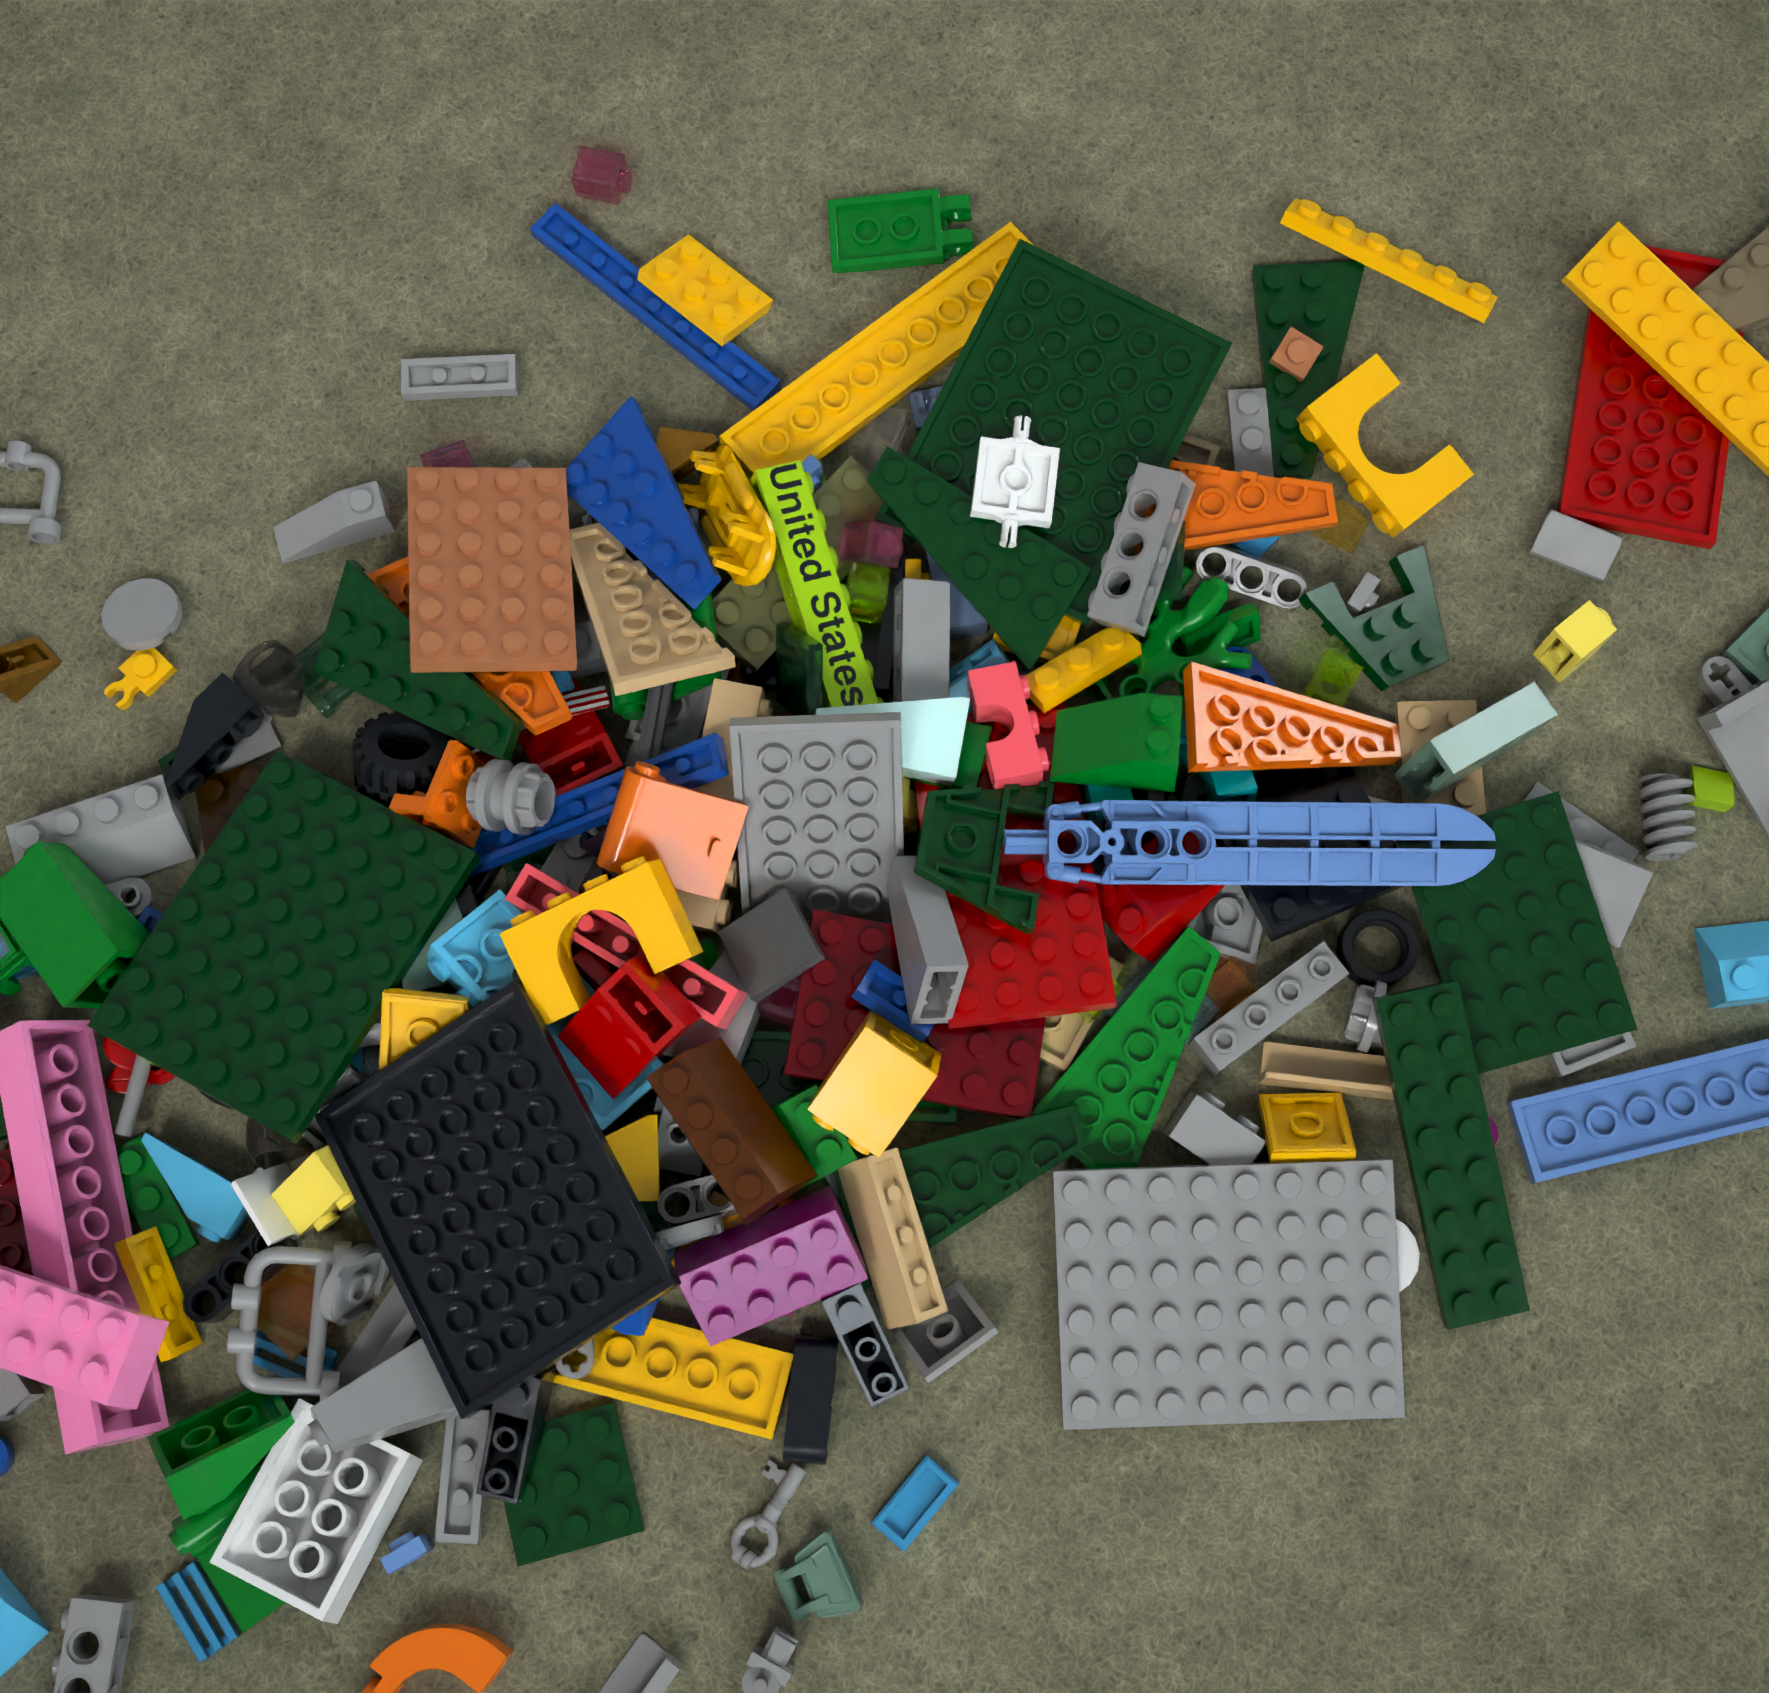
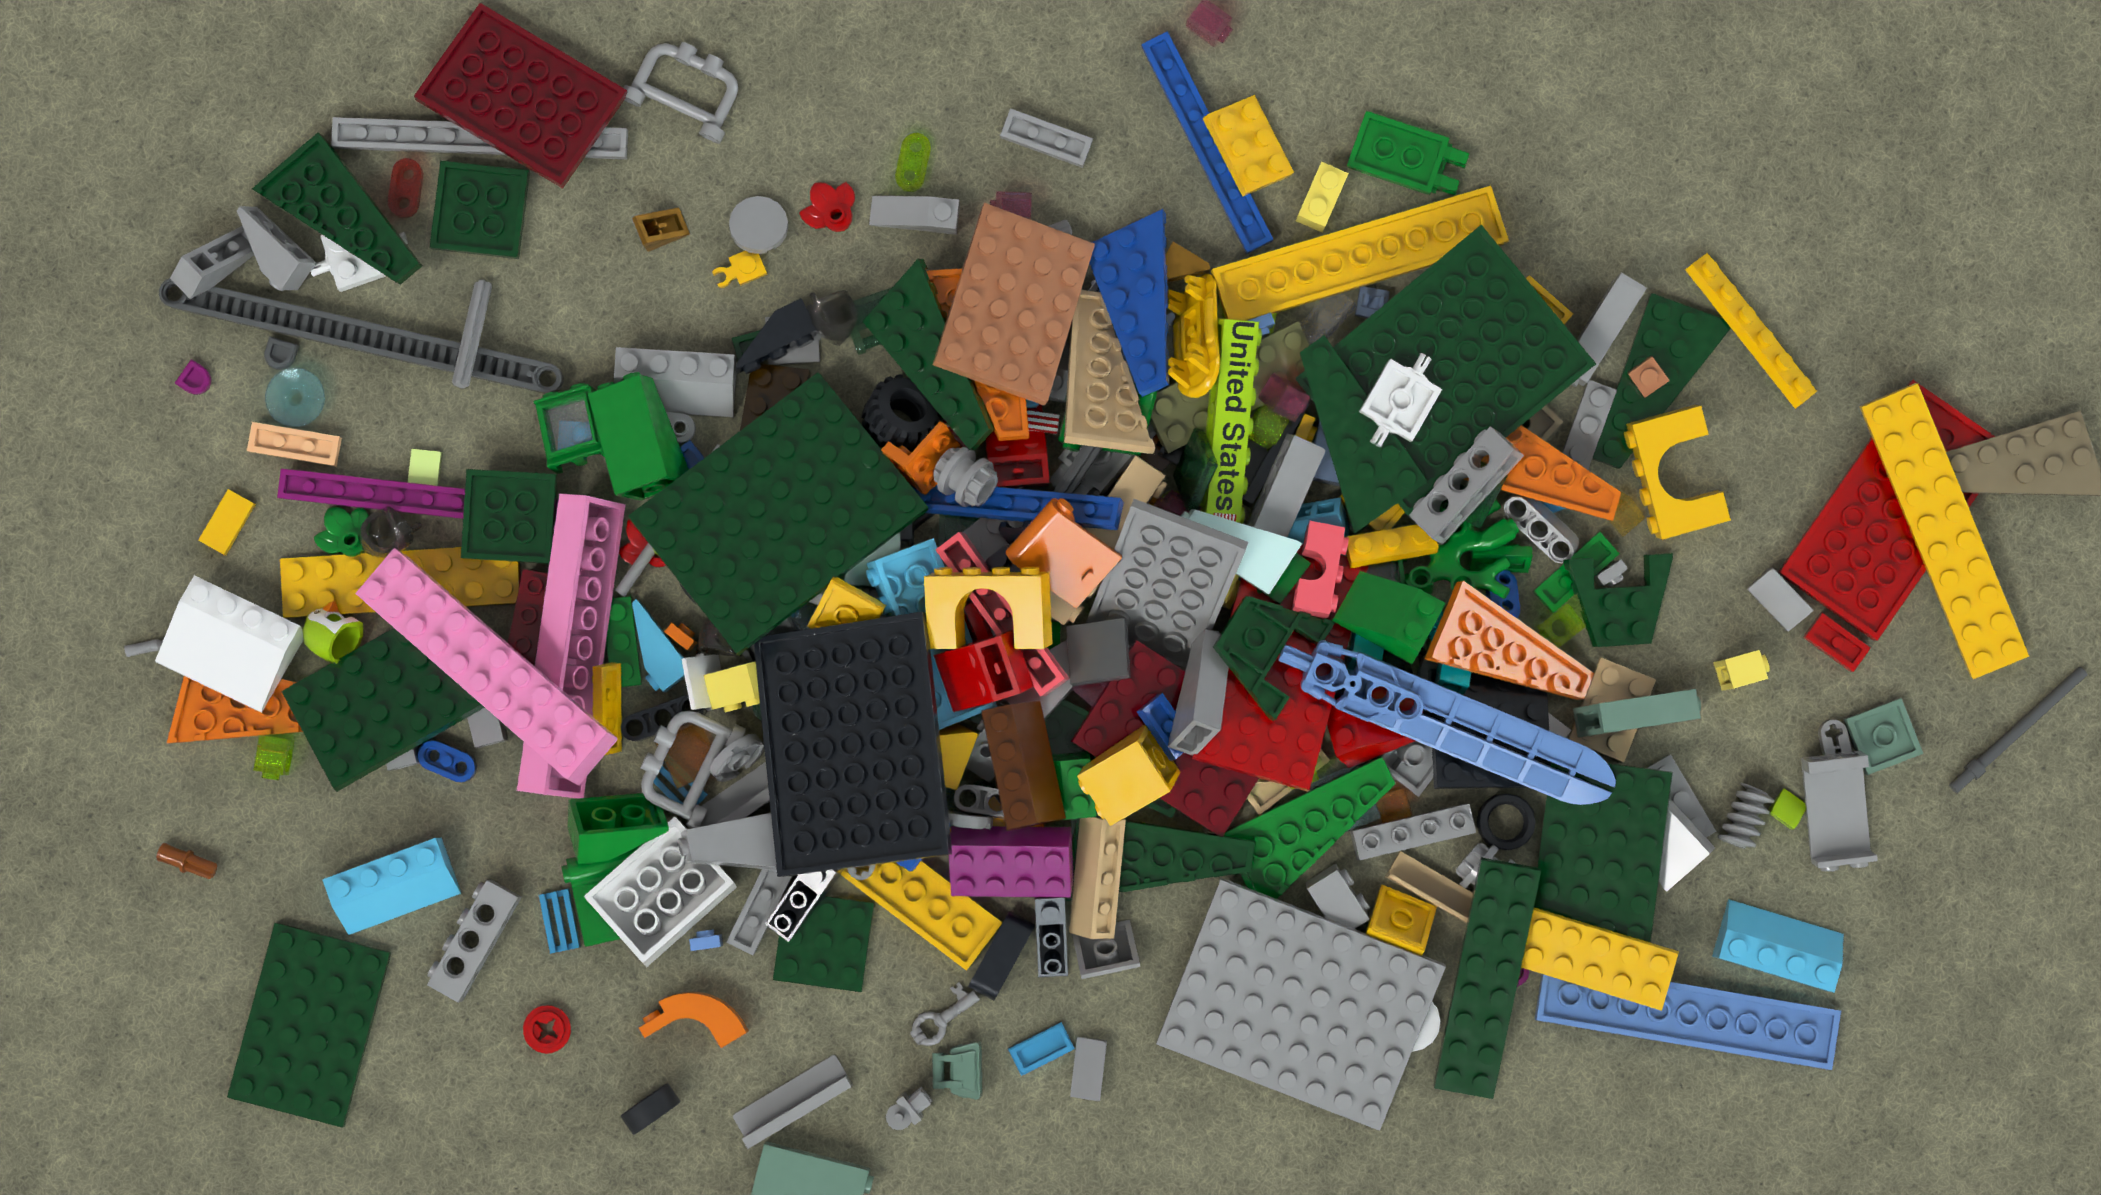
camera: 20 degrees right, 10 degrees up
(225, 560) = (828, 202): none -> red plate
(226, 1156) = (682, 635): none -> orange plate
(308, 467) = (913, 161): none -> clear neon green plate
(817, 310) = (1322, 197): none -> light yellow brick
(989, 1503) = (1088, 1068): none -> light grey slope
(1220, 304) = (1608, 320): none -> light grey slope
(1306, 637) = (1557, 587): none -> green plate
(1583, 1066) = (1599, 959): none -> yellow plate
(1667, 567) = (1836, 642): none -> red plate

